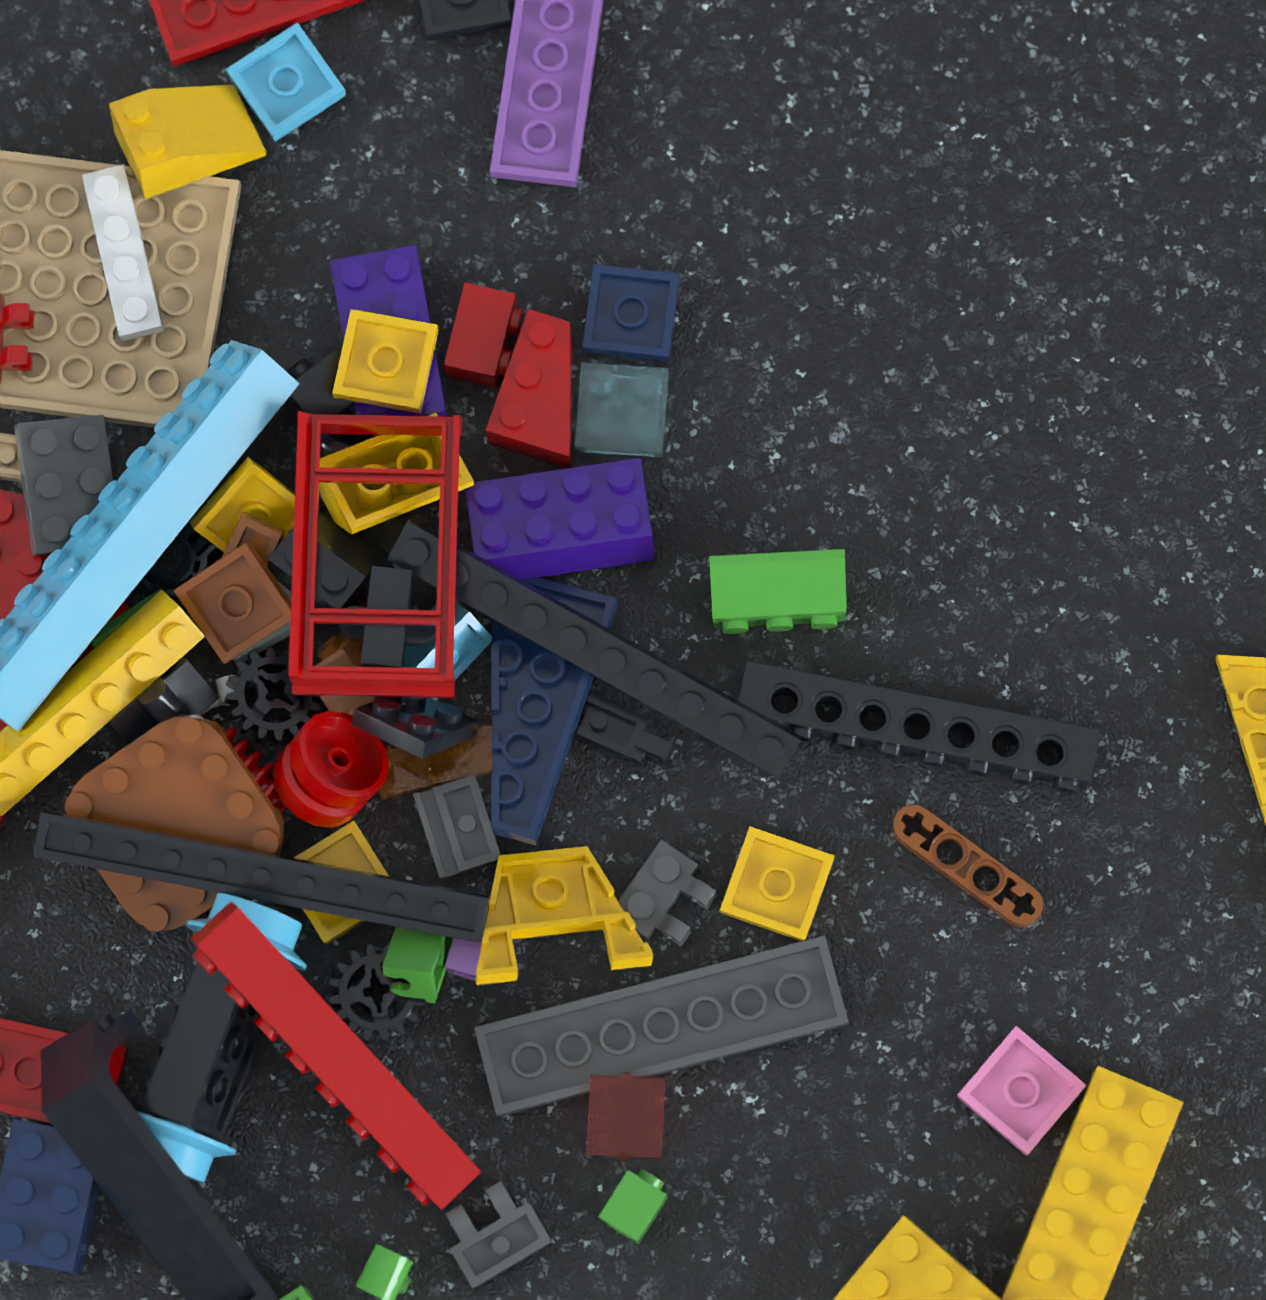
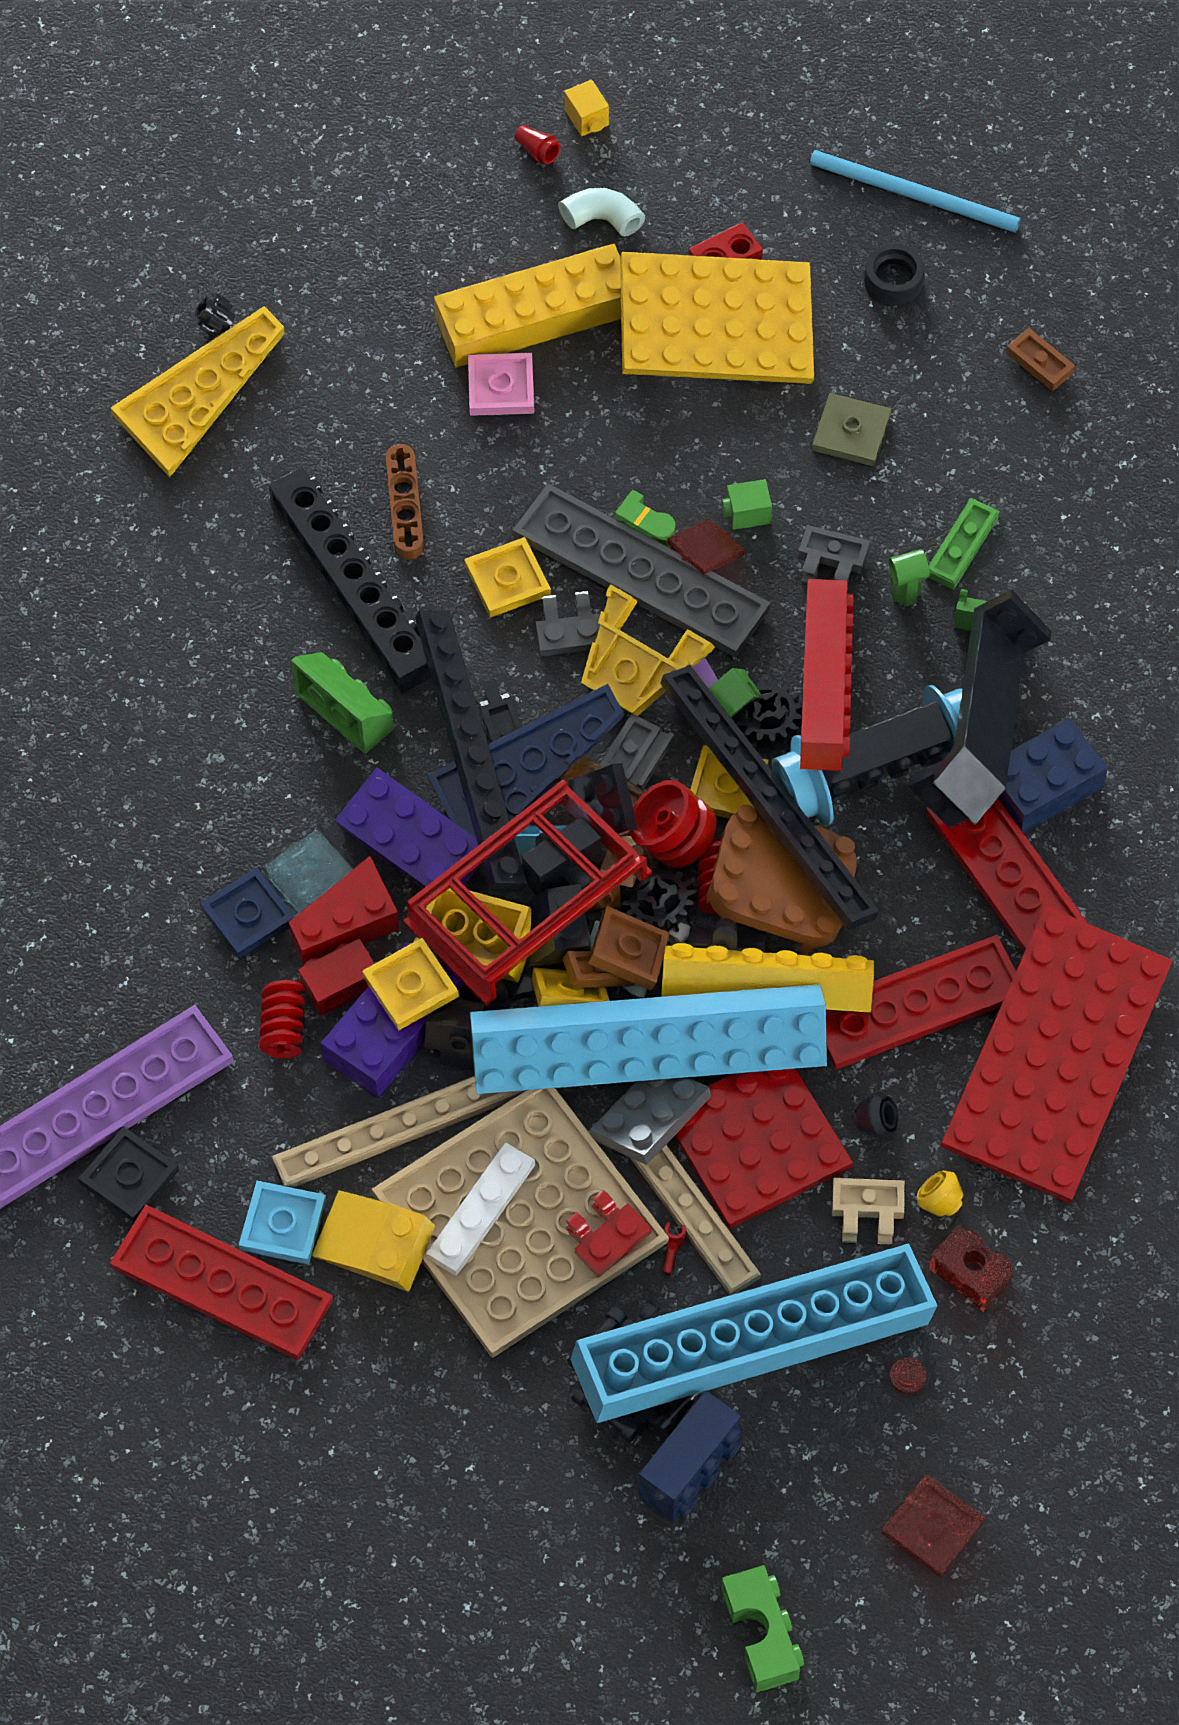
camera: 140 degrees left, 15 degrees down
(298, 235) = (385, 1131): none -> tan tile
(485, 248) = (281, 1019): none -> red piece
(708, 1078) = (645, 520): none -> bright green leg

